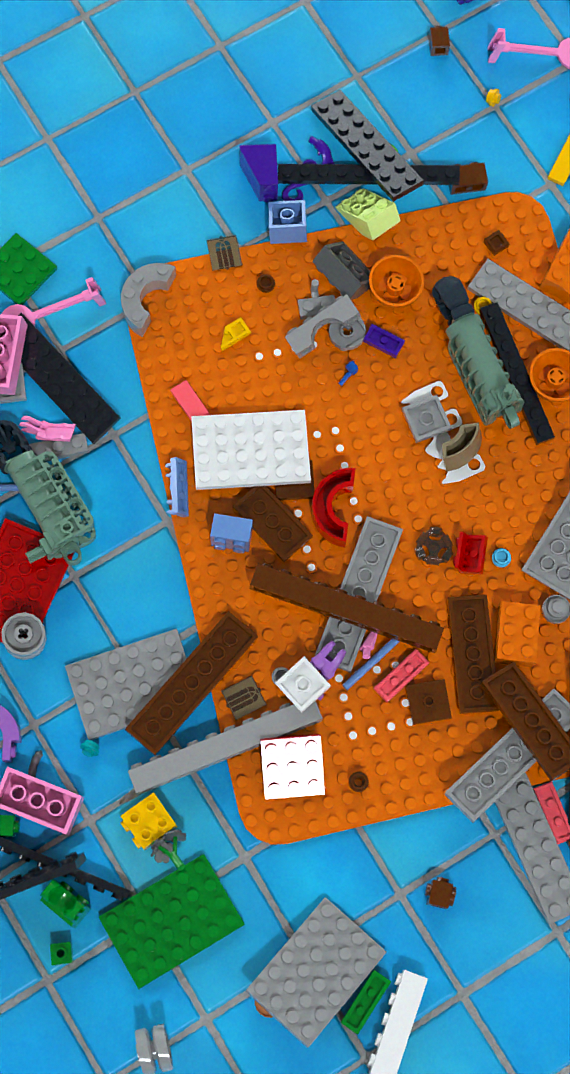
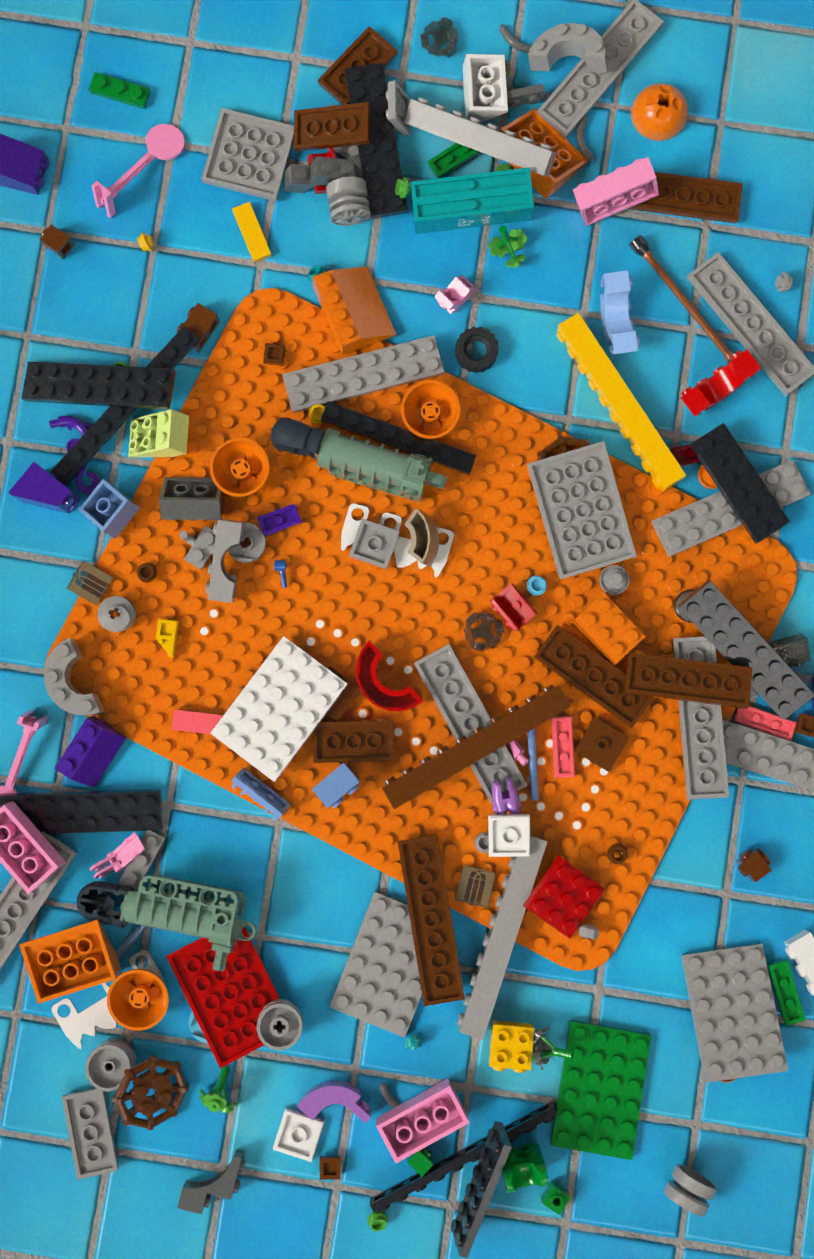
camera: 45 degrees left, 10 degrees up
(106, 349) = (90, 752): none -> dark purple slope
(210, 286) = (117, 604): none -> light grey piece
(282, 807) = (588, 931): none -> light grey tile

